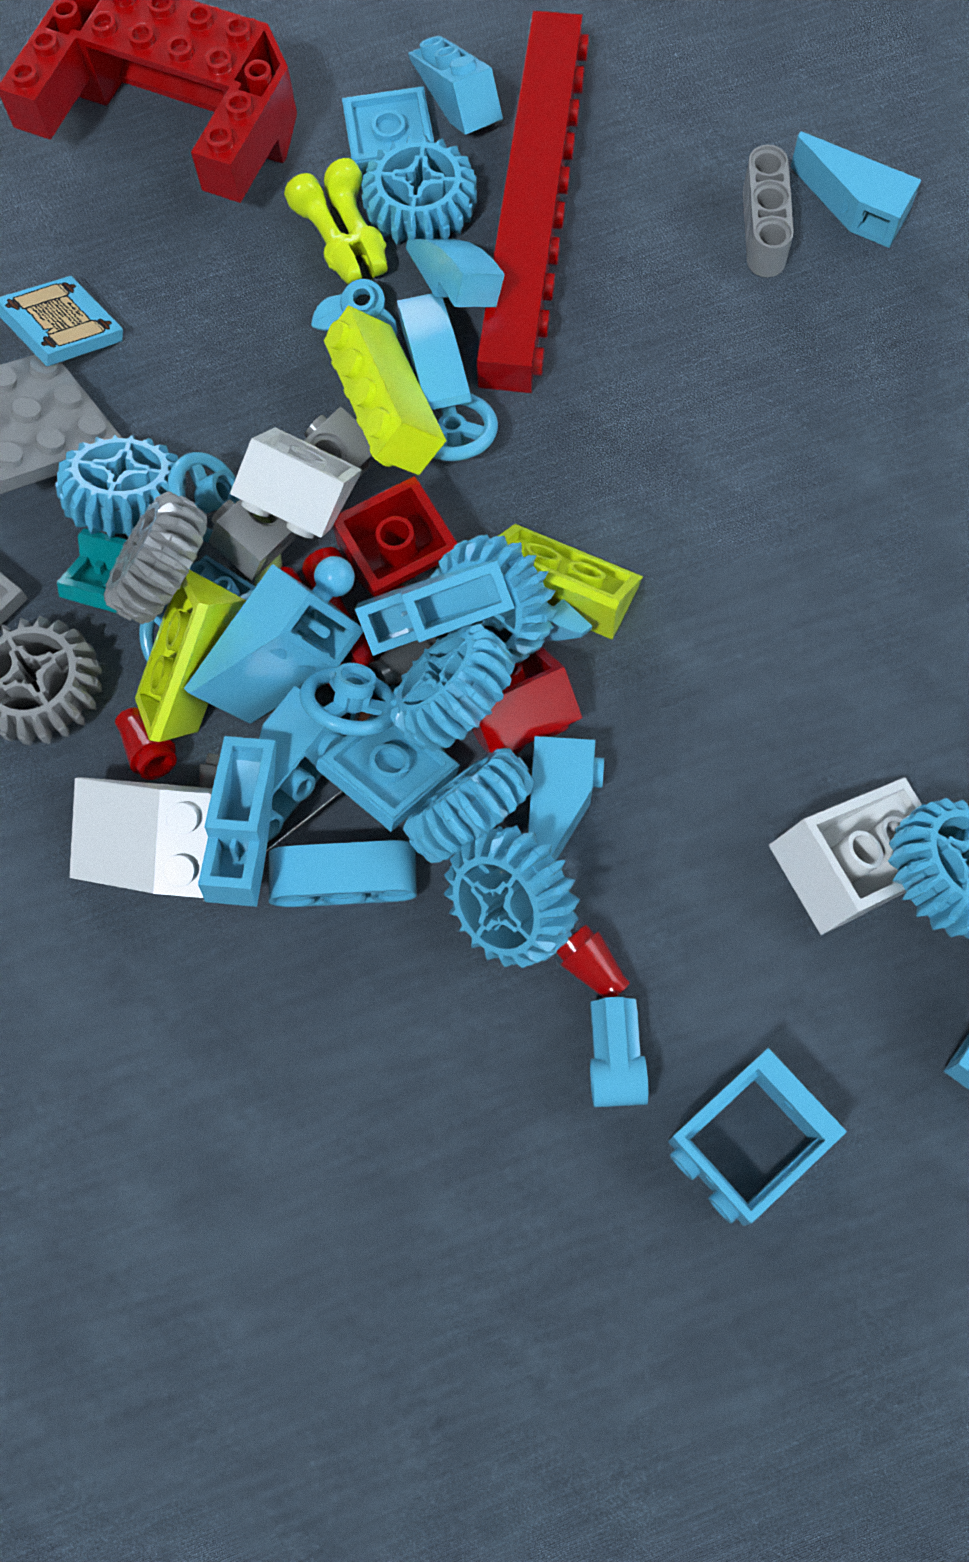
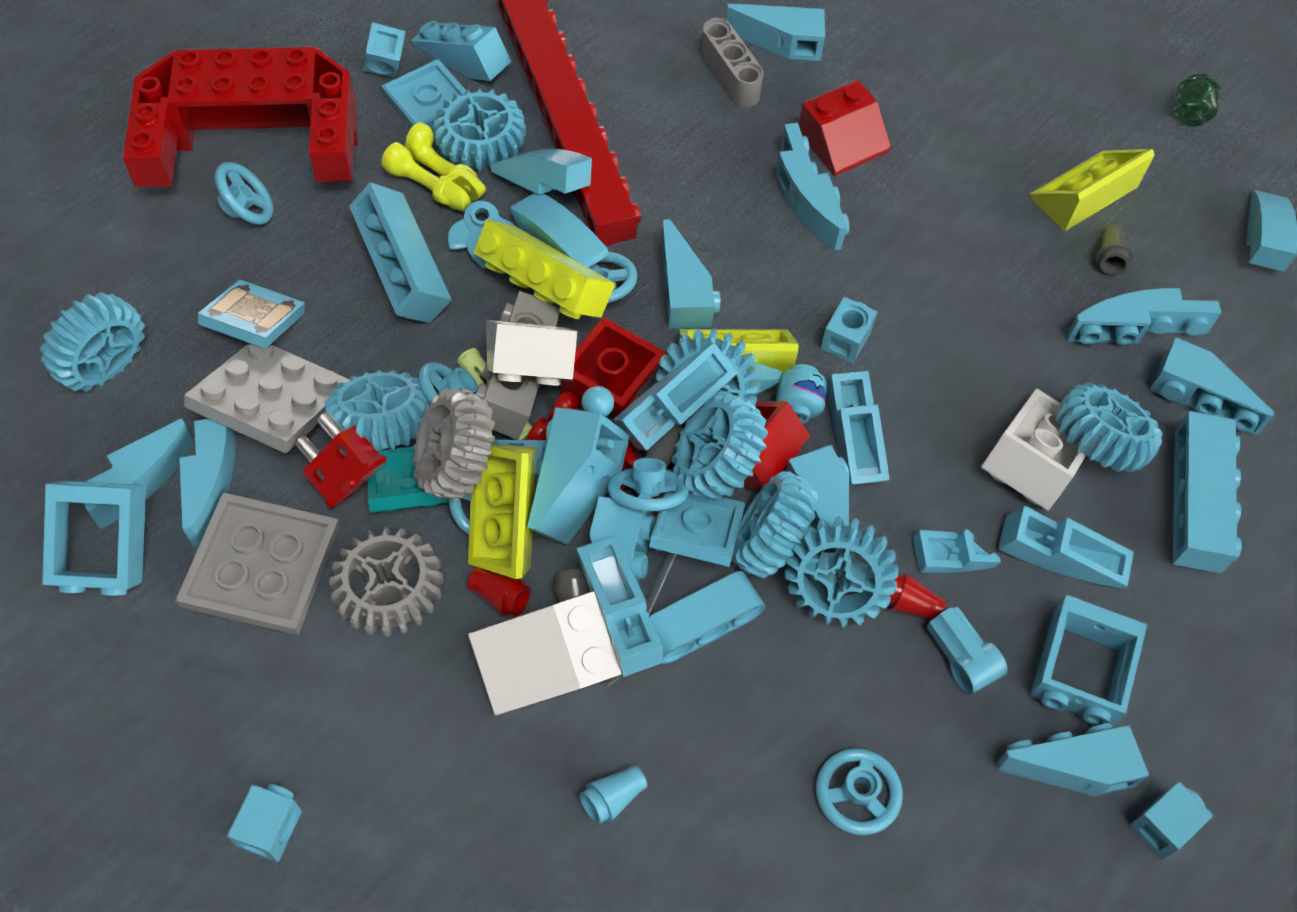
camera: 35 degrees left, 10 degrees down
(49, 529) = (342, 464): none -> red piece
(117, 179) = (239, 197): none -> medium azure piece
(135, 1021) = (611, 794): none -> medium azure cone
(245, 310) = (399, 253): none -> medium azure brick
(360, 54) = (384, 50): none -> medium azure brick
(363, 1140) = (864, 775): none -> medium azure piece
(545, 479) = (687, 283): none -> medium azure slope
(603, 662) = (803, 390): none -> medium azure head
(648, 733) = (857, 427): none -> medium azure slope
(673, 930) = (950, 552): none -> medium azure slope
(683, 1257) = (1089, 763): none -> medium azure slope
(705, 624) = (847, 341): none -> medium azure brick
(740, 1371) = (1171, 820): none -> medium azure brick
(767, 411) = (808, 192): none -> medium azure slope
(816, 992) = (1065, 548): none -> medium azure slope
(860, 347) = (844, 127): none -> red slope

